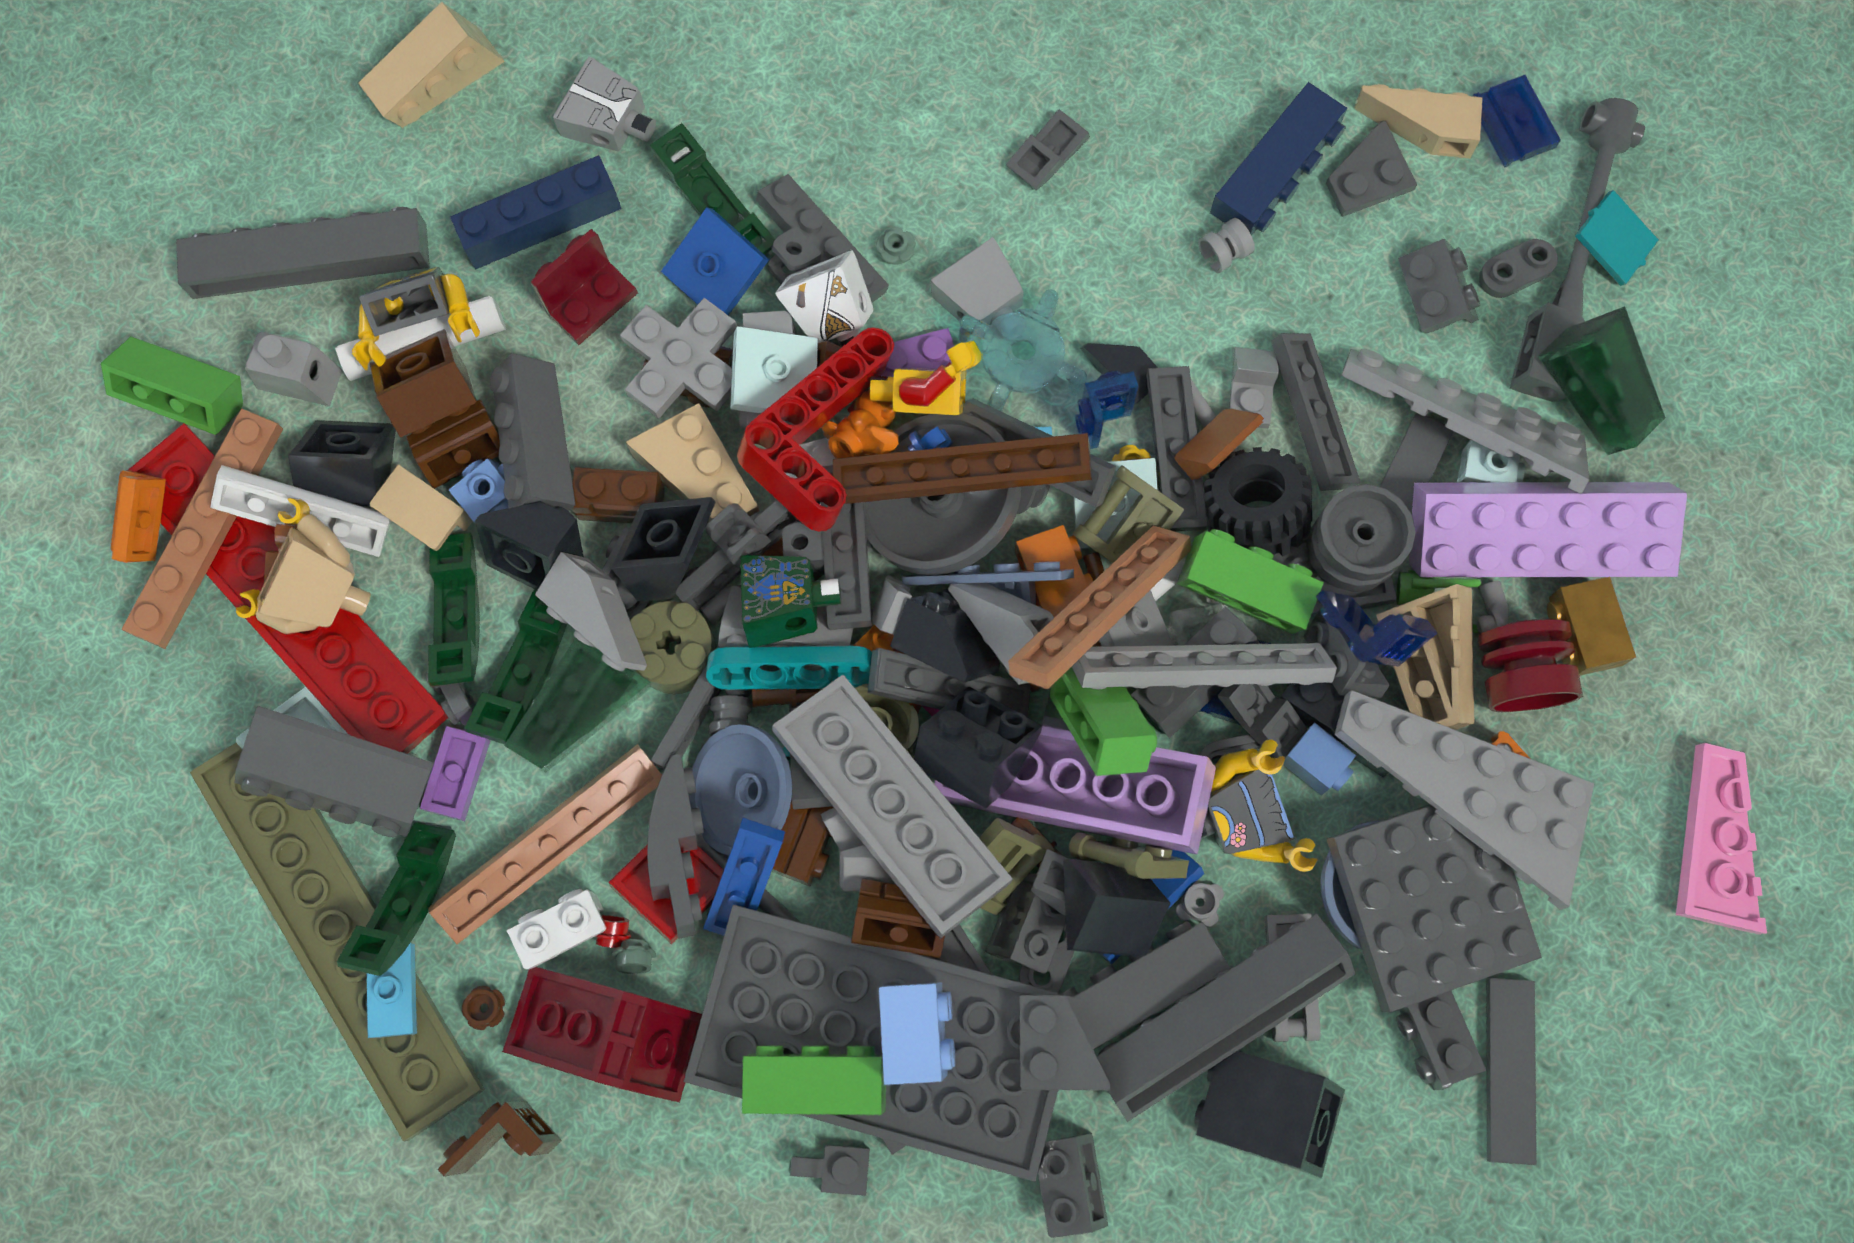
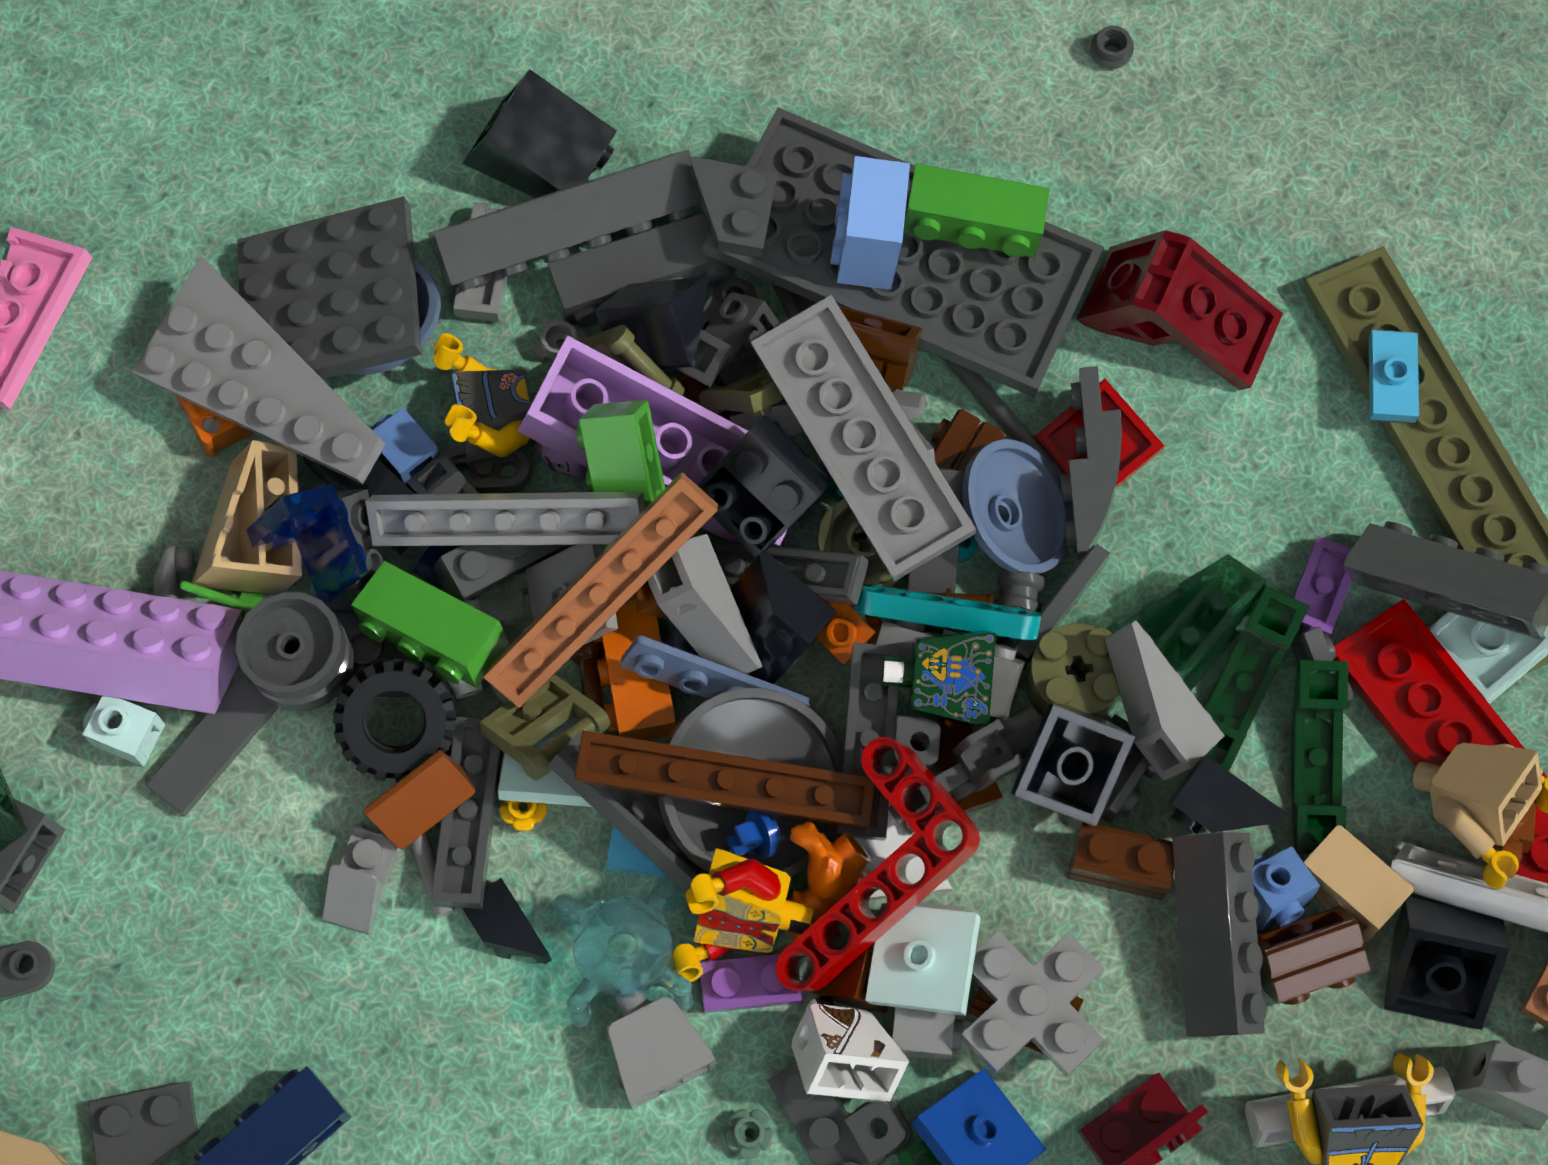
camera: 175 degrees left, 5 degrees down
(404, 903) = (1383, 451): dark green slope -> none
(423, 384) = (1348, 1024): reddish brown brick -> none
(472, 1003) = (1304, 347): reddish brown plate -> none
(514, 1122) = (1273, 238): reddish brown bracket -> none
(546, 844) = (1226, 499): nougat plate -> none
(558, 929) = (1220, 408): white bracket -> none
(615, 931) = (1168, 403): red plate -> none
(633, 956) = (1144, 379): sand green plate -> none
(692, 461) = (1027, 876): tan wedge -> none
(745, 872) = (1022, 417): blue plate -> none
(841, 1170) = (967, 159): dark grey plate -> none
(890, 604) = (830, 666): light grey slope -> none
(1071, 1187) = (741, 109): dark grey bracket -> none
(1105, 400) = (543, 868): clear blue bracket -> none
(1228, 244) = (344, 1057): light grey wheel -> none
(1315, 411) = (298, 831): dark grey plate -> none
(1439, 286) = (105, 961): dark grey bracket -> none
(1441, 1041) = (357, 176): dark grey bracket -> none
(1478, 417) = (114, 776): light grey wing -> none
(1511, 1071) = (299, 151): dark grey tile -> none
(1528, 659) = (156, 496): dark red wheel -> none
(1595, 623) = (75, 536): pearl gold brick -> none

